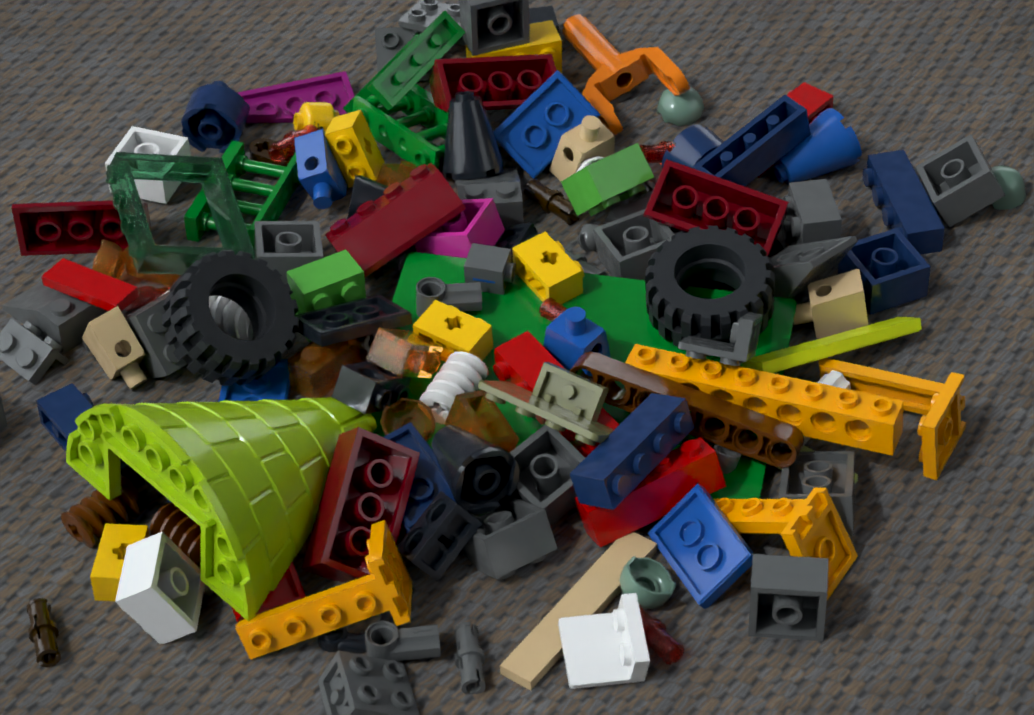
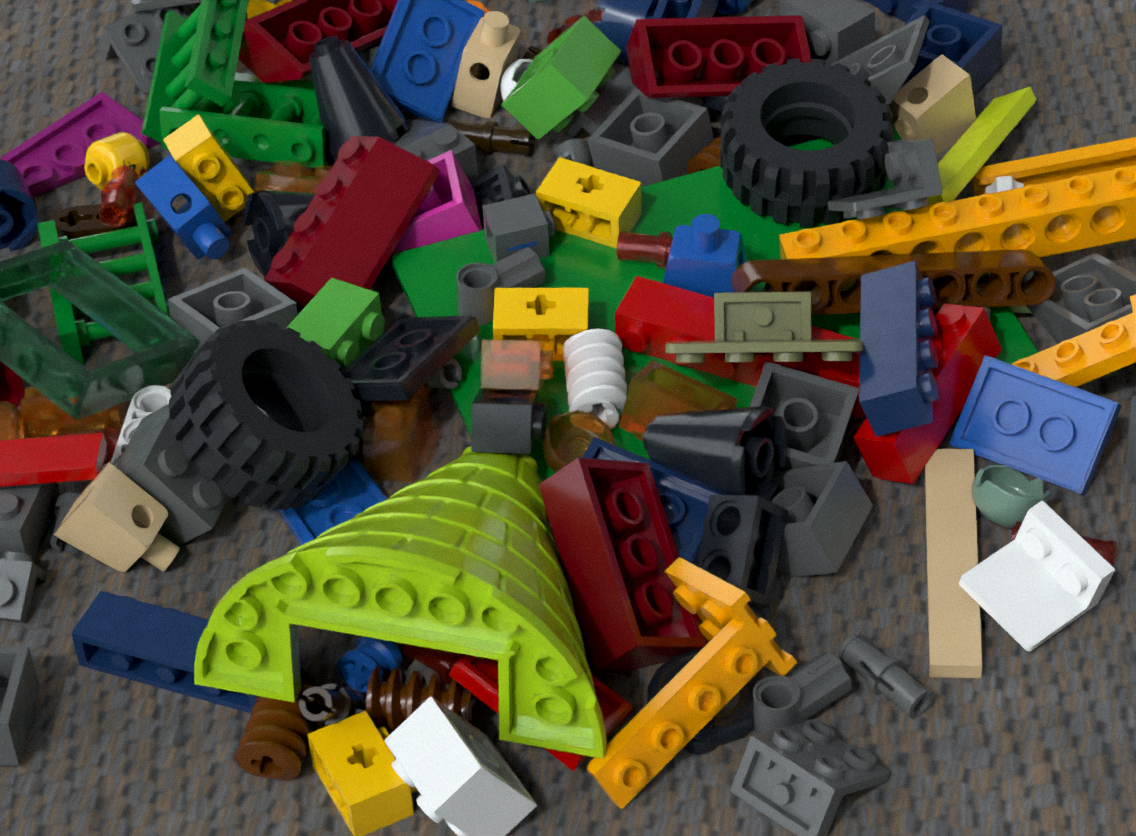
camera: 30 degrees left, 0 degrees up
(130, 511) = (330, 703): none -> dark brown pin

